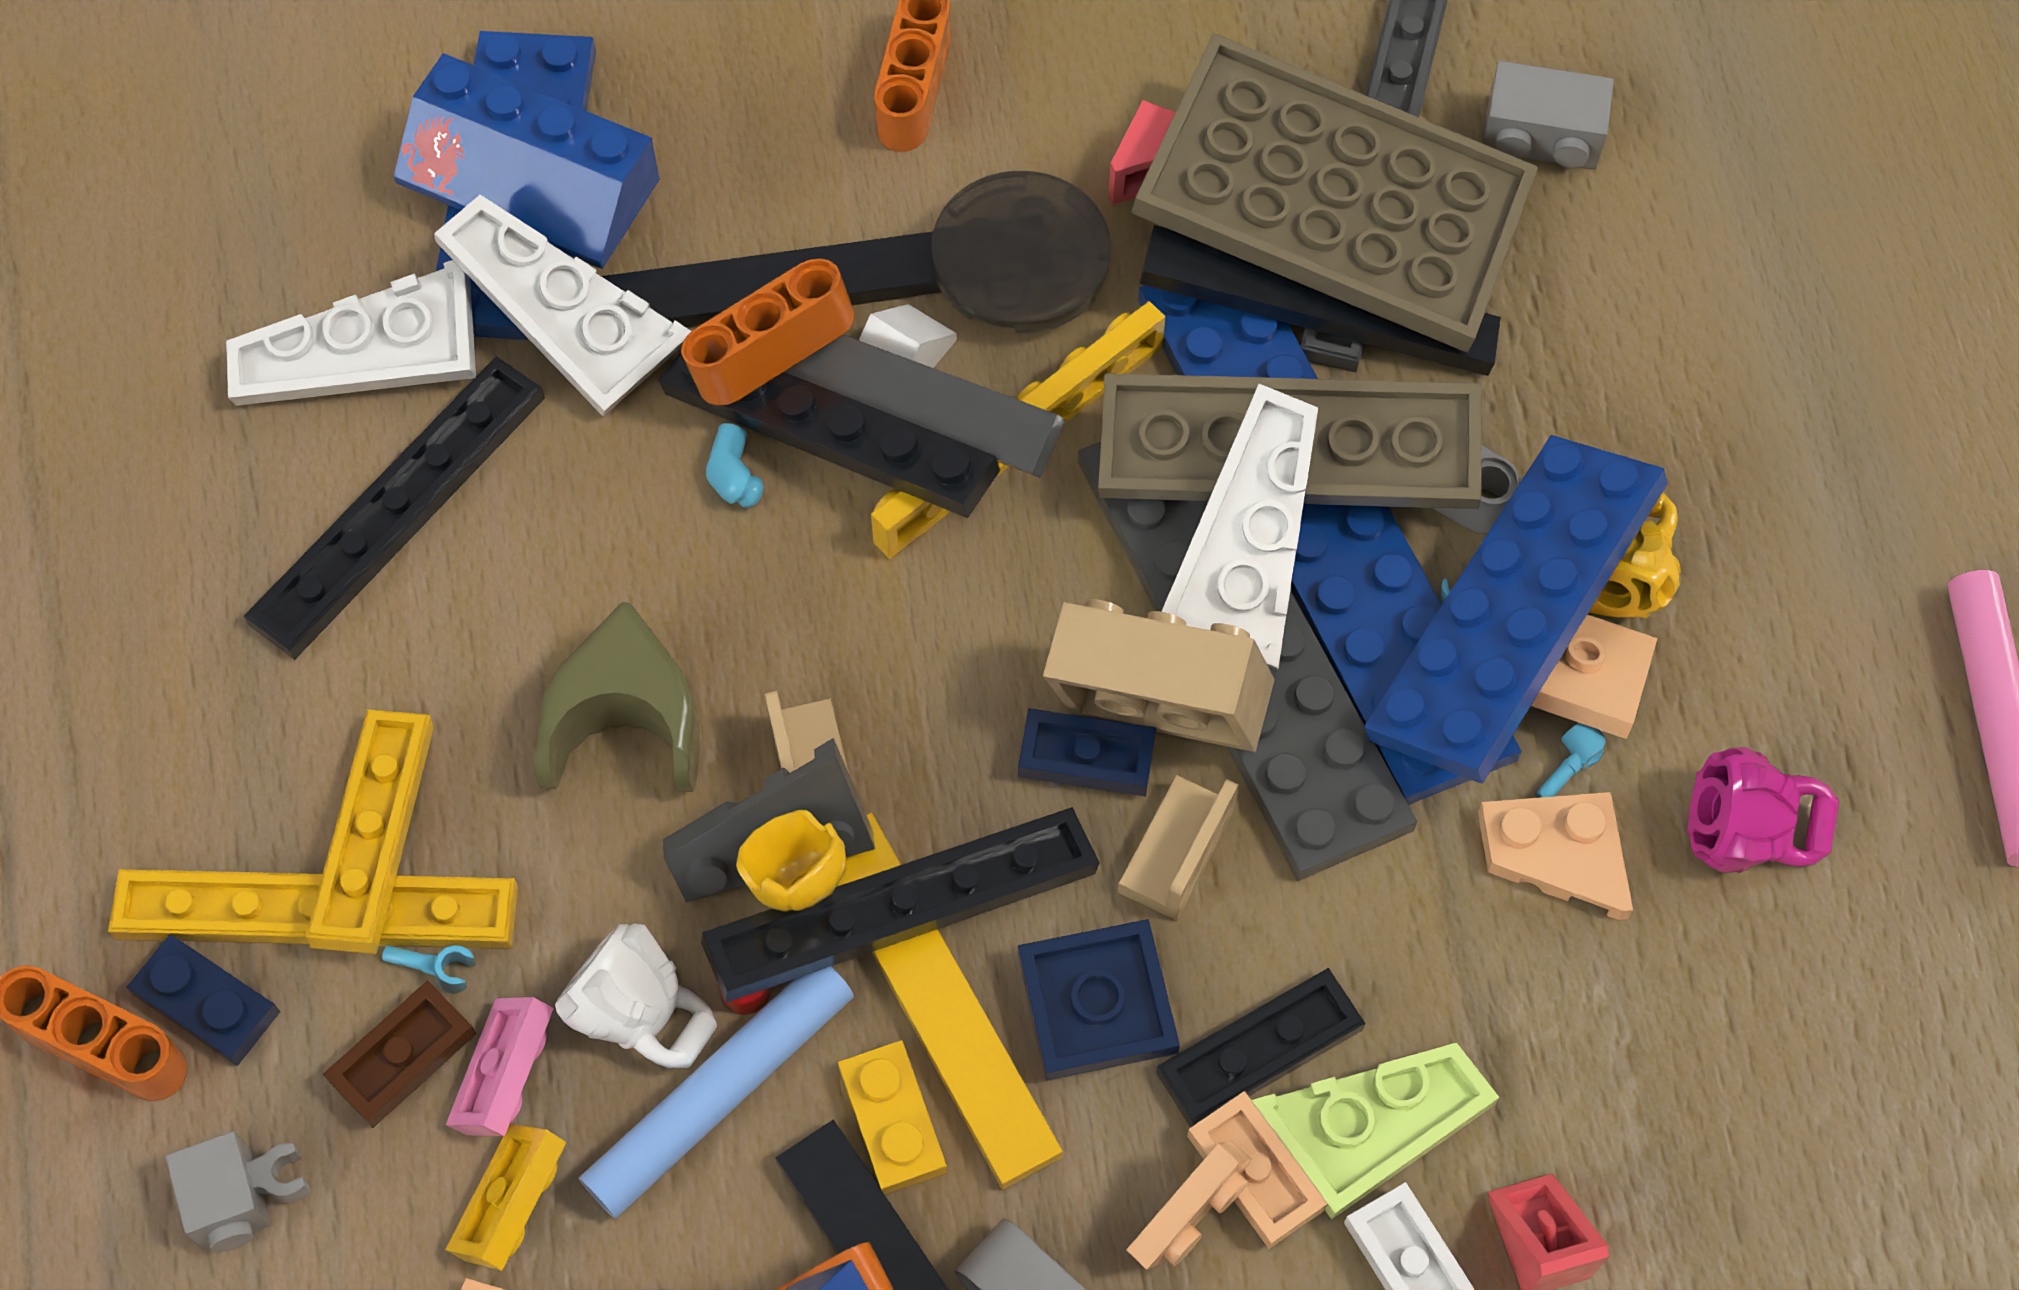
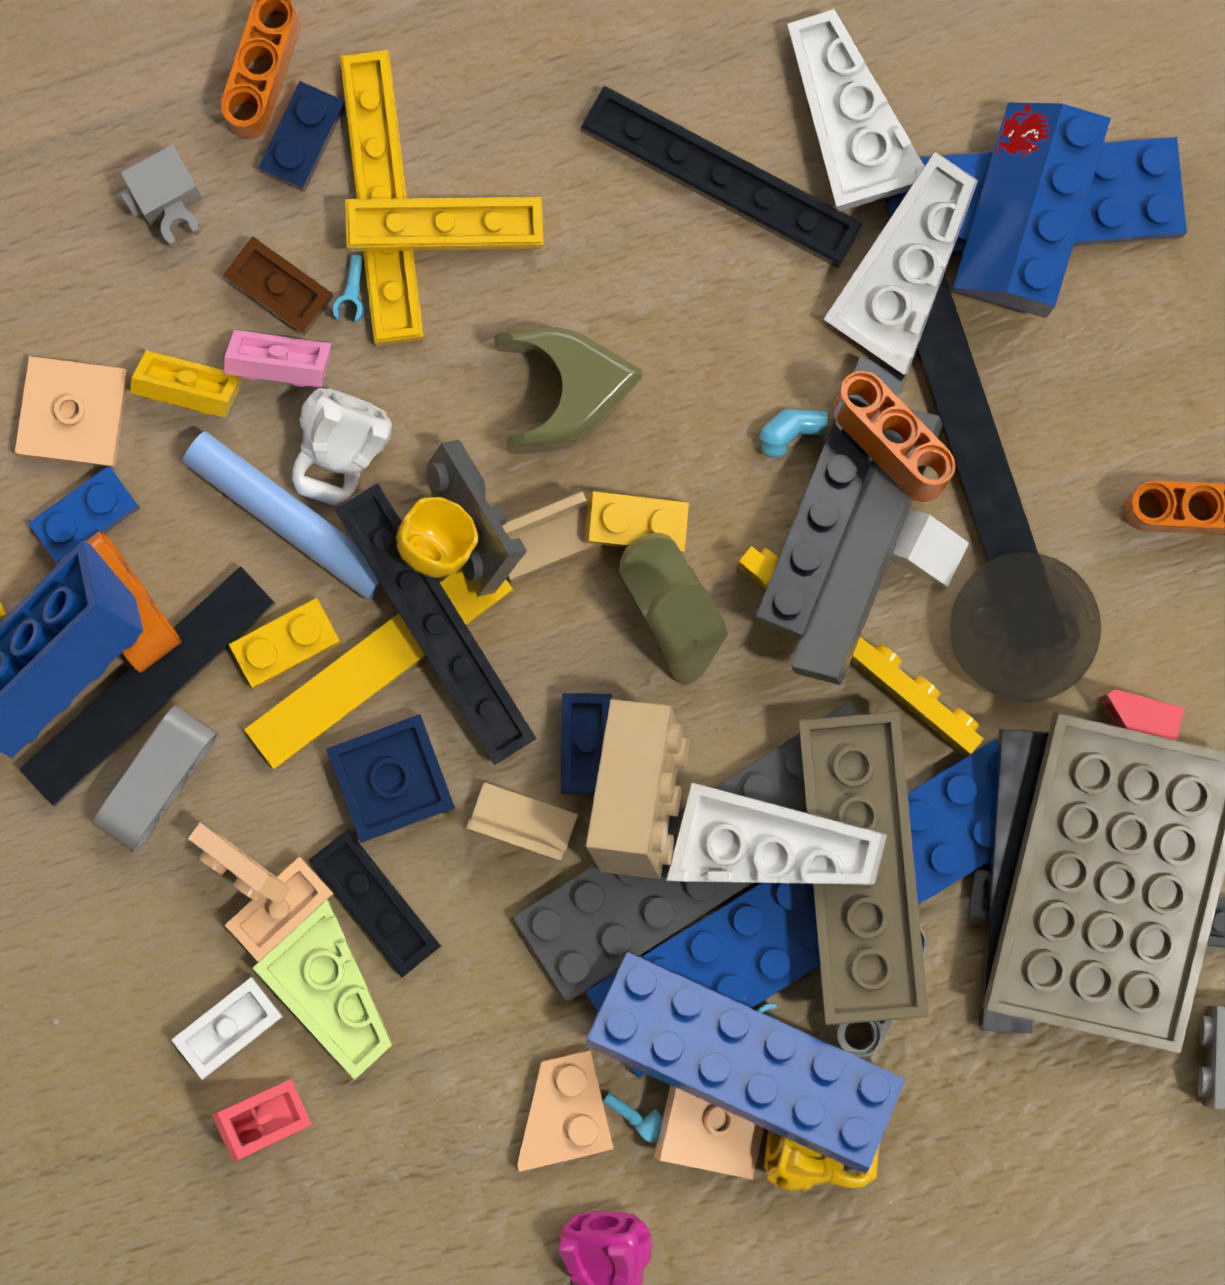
camera: 80 degrees right, 20 degrees up
(814, 653) = (624, 518): none -> yellow plate
(944, 617) = (673, 605): none -> olive animal

